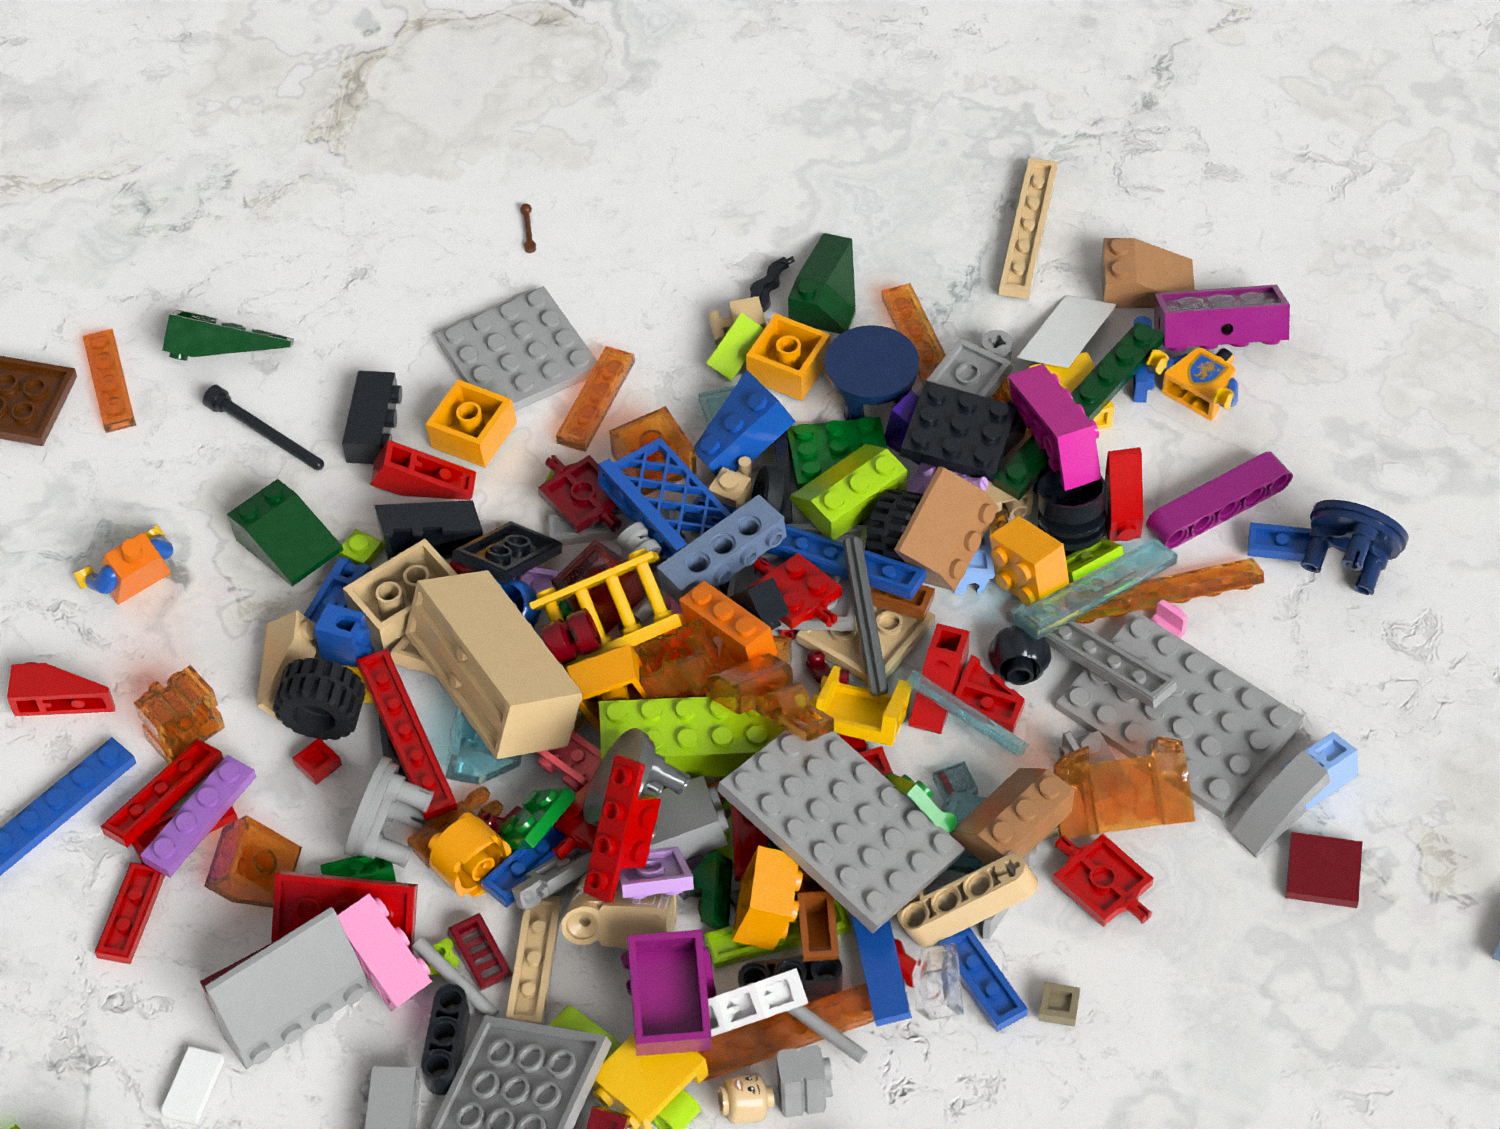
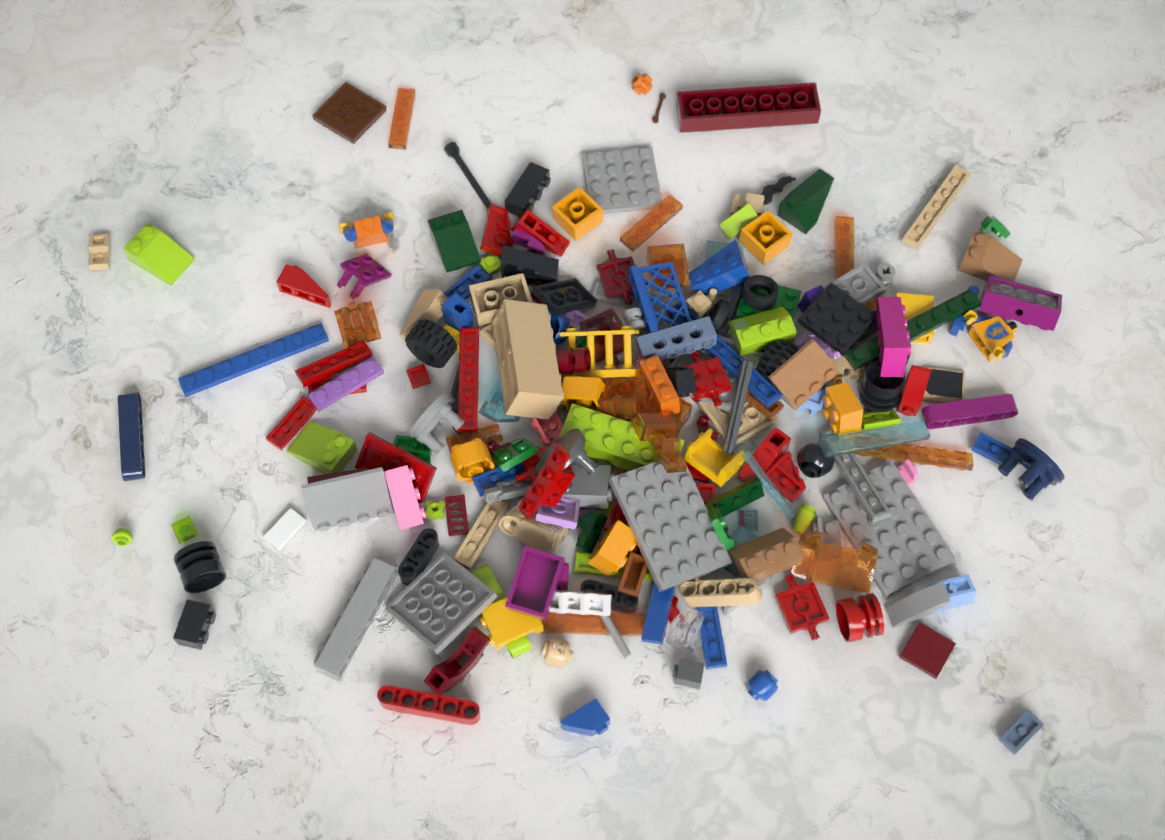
camera: 20 degrees right, 10 degrees up
(153, 627) = (366, 270): none -> magenta plate
(200, 336) = (458, 110): dark green wedge -> none
(203, 931) = (323, 448): none -> lime slope
(248, 860) = (360, 418): clear orange slope -> none
(348, 495) = (496, 231): none -> red wing
(403, 491) = (528, 241): none -> magenta slope
(447, 971) = (437, 525): light grey bar -> none
(485, 200) = (642, 84): none -> orange gear
(670, 180) = (748, 107): none -> dark red brick
(803, 1080) = (589, 656): light grey brick -> none
(819, 450) = (761, 282): none -> black tyre
(871, 367) = (806, 261): dark blue piece -> none
(929, 748) = (738, 496): none -> dark green plate
(973, 1047) = (688, 673): none -> dark grey brick
(1043, 744) = (804, 517): none -> lime cone
(1059, 1004) = (746, 667): dark tan plate -> none
(1066, 331) = (929, 278): white sticker -> none
(1097, 1019) = (762, 685): none -> blue head
(1134, 221) = (998, 228): none -> green bracket
(1167, 477) = (945, 385): none -> black tile
(1200, 856) = (859, 617): none -> red wheel

